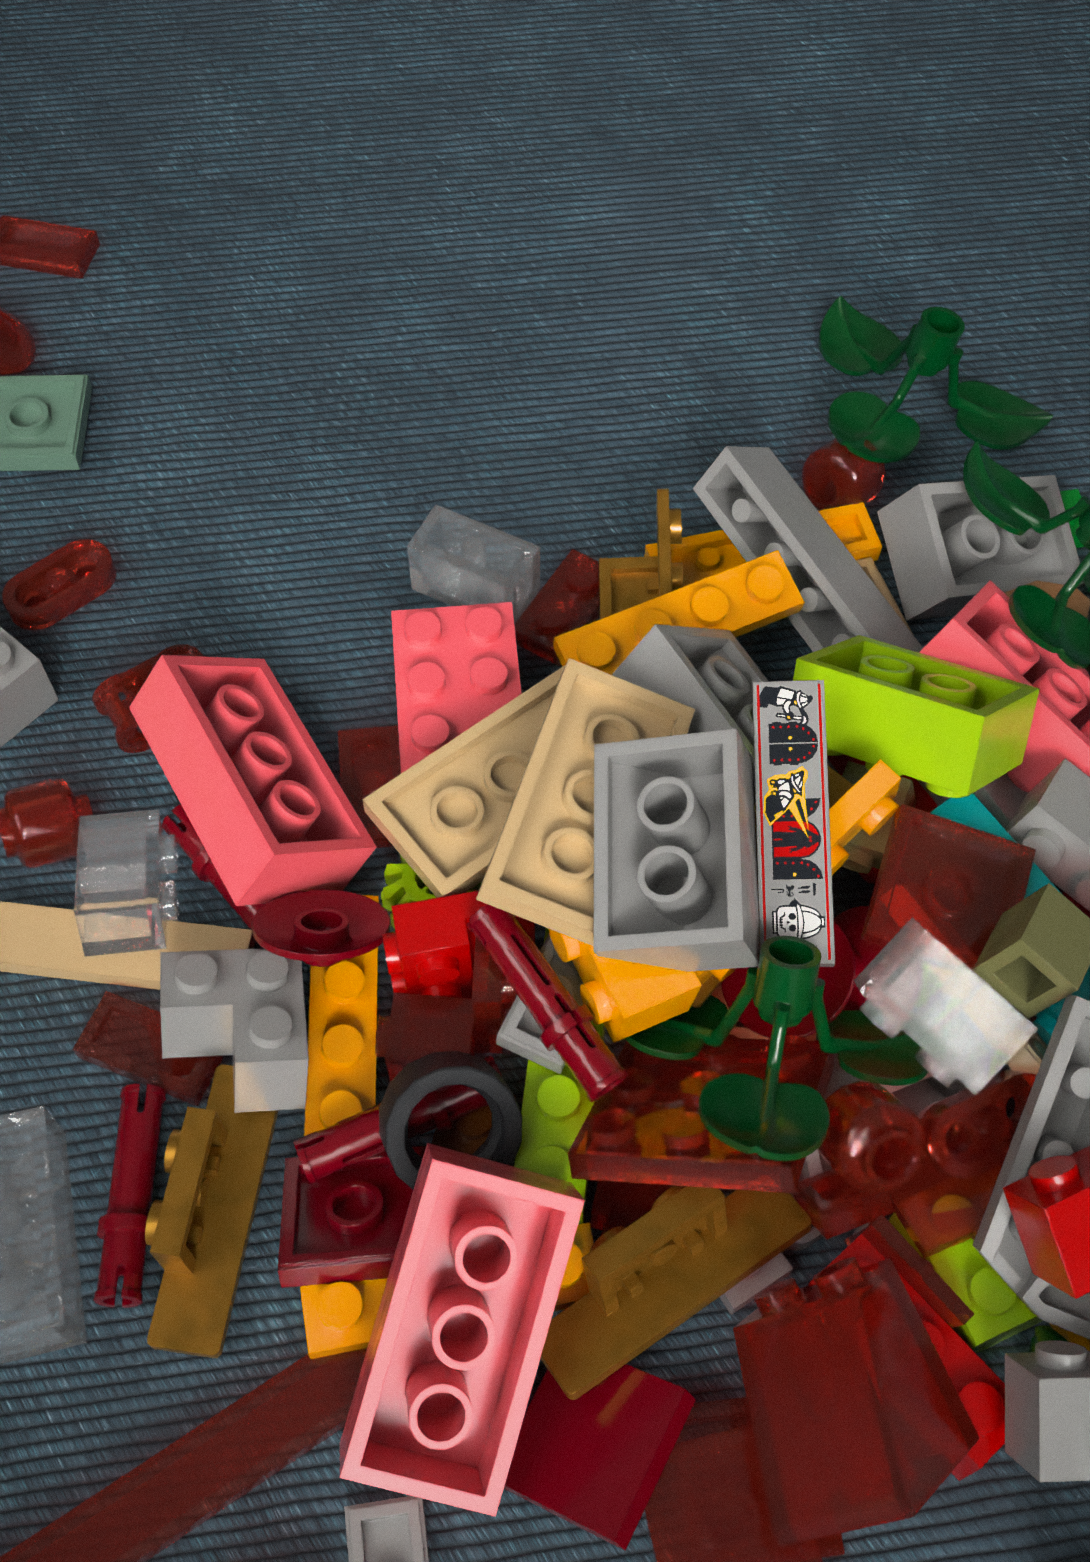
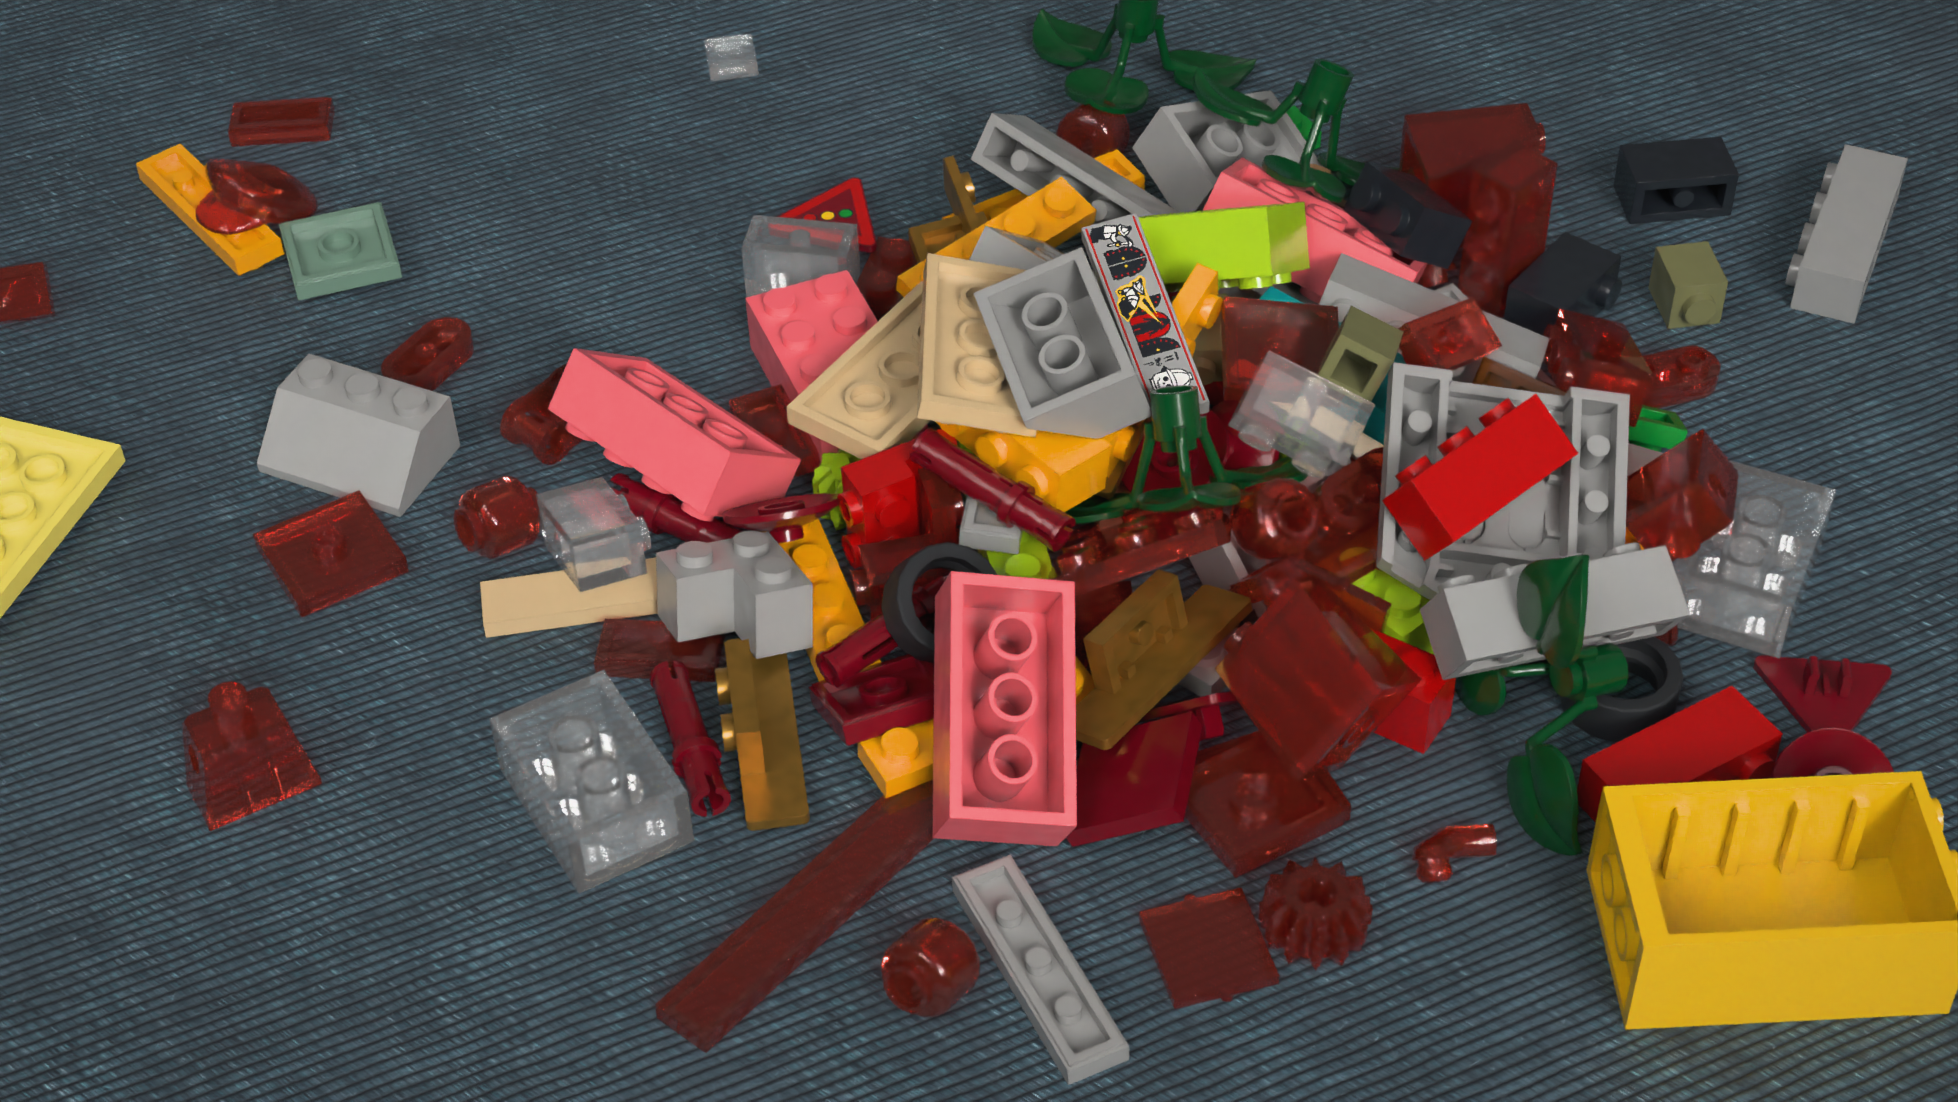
camera: 15 degrees left, 15 degrees down
(504, 275) = (731, 57): none -> clear tile
(532, 511) = (843, 205): none -> piece
(704, 1352) = (1205, 708): none -> dark red piece

